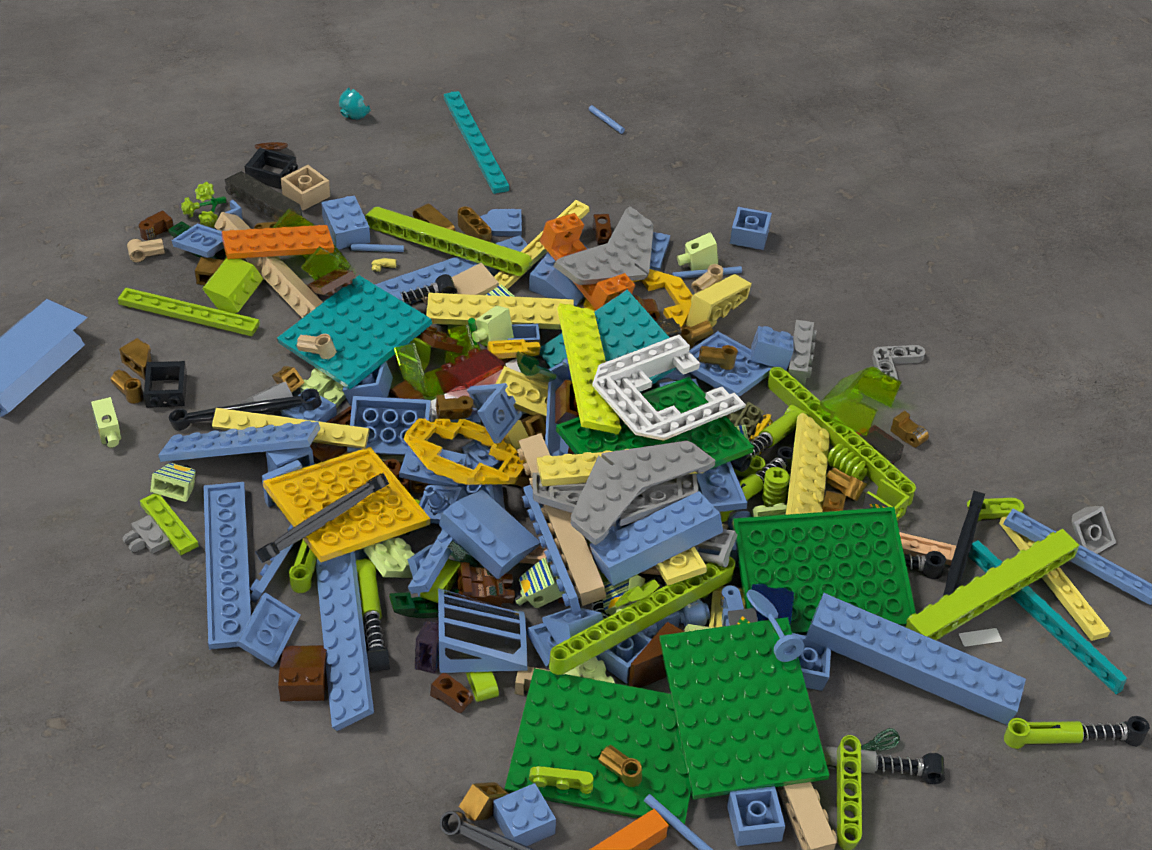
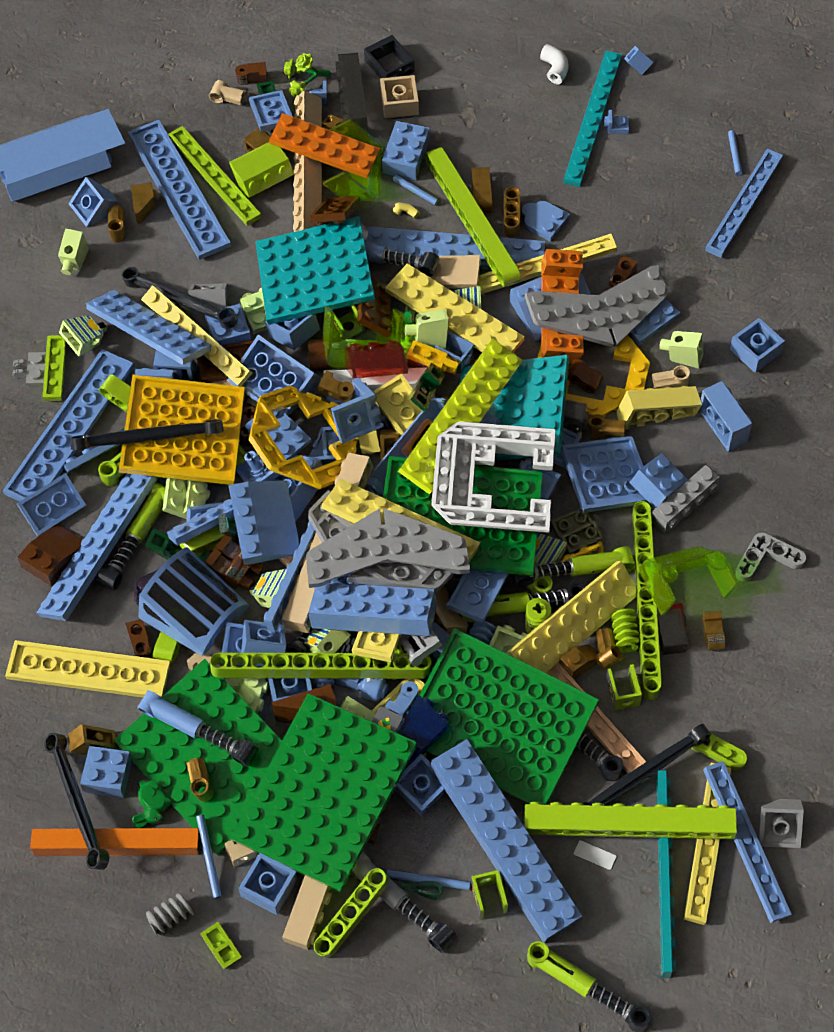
camera: 40 degrees right, 15 degrees up
(88, 379) = (92, 202): none -> medium blue slope
(165, 335) = (179, 189): none -> medium blue plate
(165, 371) = (152, 224): black window -> none
(259, 510) = (116, 391): none -> lime beam
(274, 146) = (407, 36): reddish brown dish -> none
(289, 375) = (235, 285): pearl gold leg -> none
(321, 345) = (268, 269): tan piece -> none
(352, 105) = (509, 25): teal cylinder -> none
(413, 114) = (558, 61): none -> white cylinder
(424, 746) = (87, 669): none -> light yellow plate
(476, 88) = (638, 60): none -> medium blue panel
(498, 137) = (616, 124): none -> medium blue bracket
(526, 729) = (156, 707): none -> piece
(562, 778) = (151, 762): lime plate -> none
(588, 816) = (153, 802): none -> green animal
(637, 593) = (320, 646): lime slope -> none
(646, 147) = (743, 203): none -> medium blue plate
(698, 273) = (671, 365): medium blue piece -> none
(703, 810) = (239, 854): none -> tan leg
(723, 357) = (601, 466): pearl gold piece -> none
(777, 282) = (725, 416): none -> medium blue brick
(788, 646) = (407, 723): medium blue piece -> none
(900, 723) = (419, 878): none -> medium blue bar
(942, 703) = (493, 877): none -> lime piece

